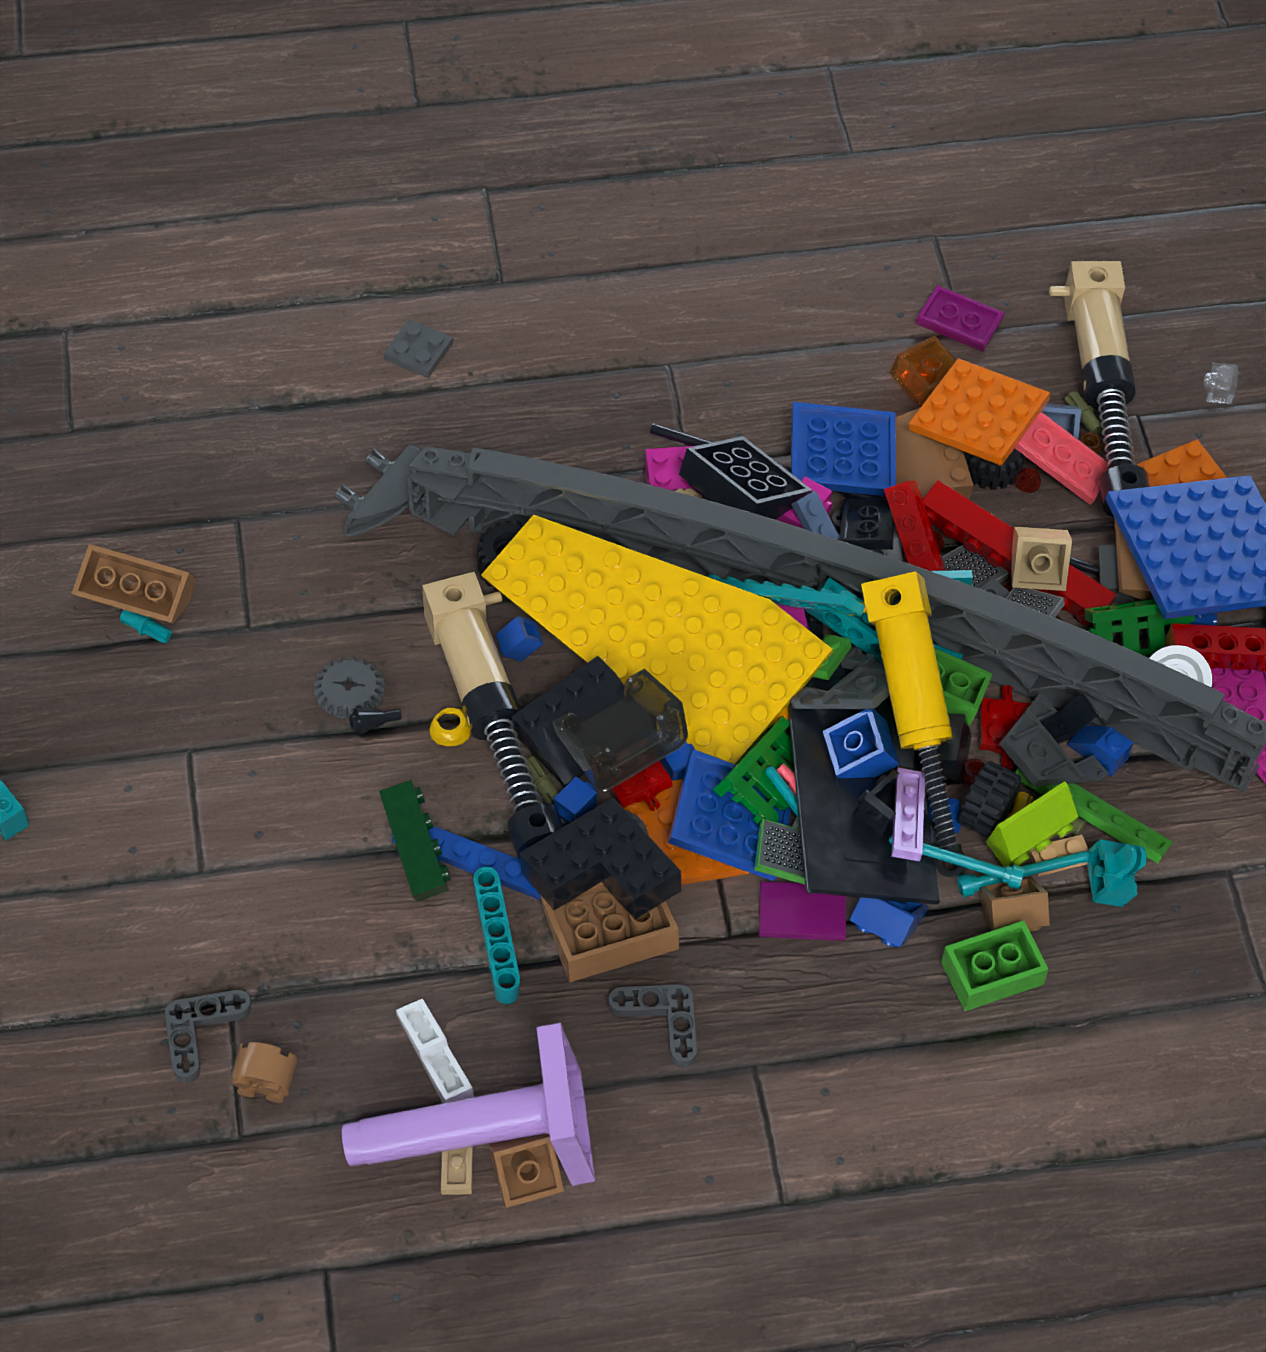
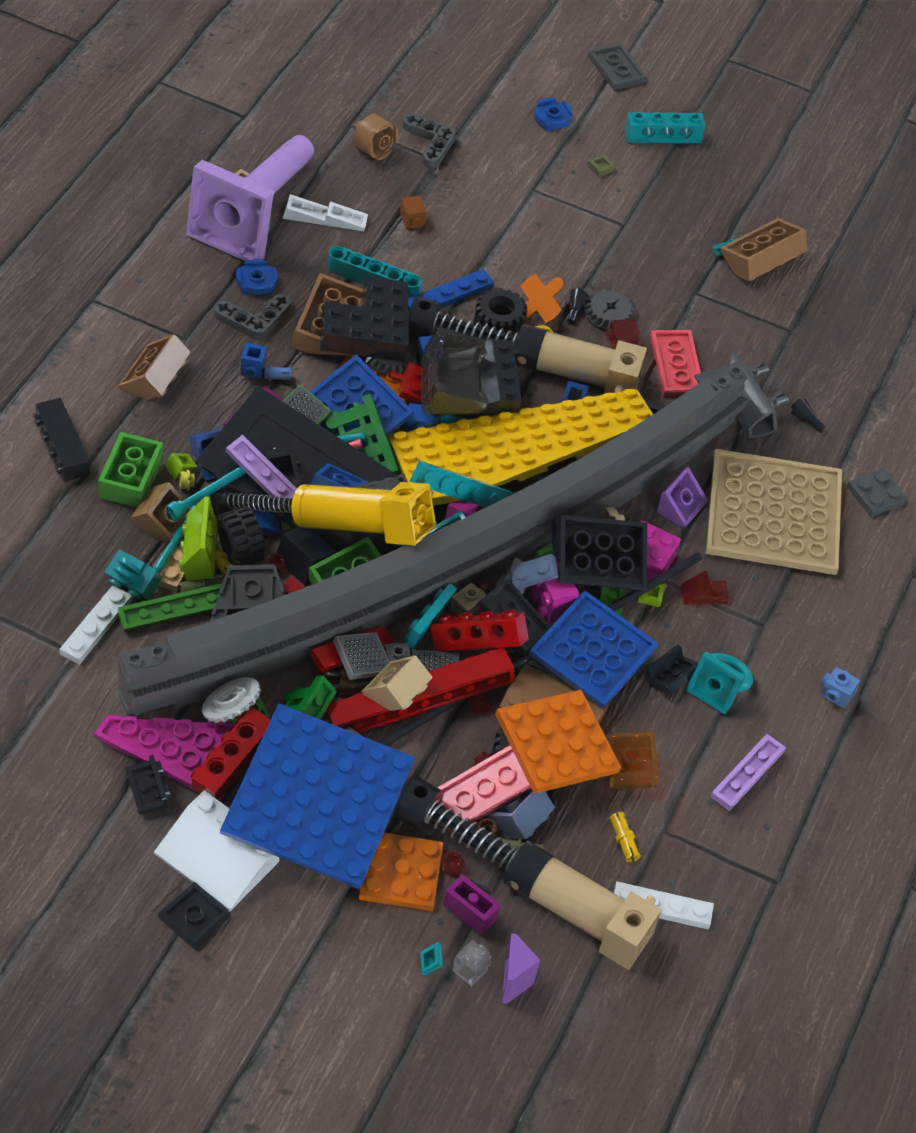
camera: 120 degrees right, 5 degrees down
(49, 936) = (560, 115): none -> blue plate
(101, 824) = (601, 165): none -> olive tile
(359, 958) = (413, 212): none -> dark orange brick
(361, 445) = (804, 411): none -> black cone
(378, 589) = (675, 361): none -> coral tile
(392, 645) = (622, 330): none -> clear red slope
(402, 743) = (542, 297): none -> orange piece
(414, 841) = (466, 264): dark green brick -> none
(460, 752) = (501, 310): none -> black tyre
(525, 403) = (774, 511): none -> tan plate
(604, 1068) = (251, 285): none -> blue plate
(675, 417) = (702, 591): none -> clear red slope
(700, 268) = (839, 687): none -> medium blue brick
(734, 939) = (277, 373): none -> medium blue pin
(743, 956) = (253, 360): none -> blue brick
(785, 350) = (718, 682): none -> teal tile
(792, 389) = (671, 671): none -> black bracket
(835, 1054) = (155, 368): none -> medium nougat slope
(850, 296) = (748, 772): none -> lavender plate
(931, 939) = (180, 462): none -> lime slope
(950, 918) = (186, 480): none -> light yellow plate
(960, 318) = (677, 836): magenta tile -> none
(1000, 348) = (625, 837): none -> yellow pin
(1011, 1067) = (62, 440): none -> black brick
(1035, 297) = (673, 907): none -> white plate
(1146, 445) = (455, 858): none -> clear red plate
(1175, 407) = (471, 904): none -> magenta brick
(1189, 875) = (95, 625): none -> white plate
(1207, 343) = (520, 969): none -> medium lavender slope
(1243, 414) = (431, 958): none -> teal slope

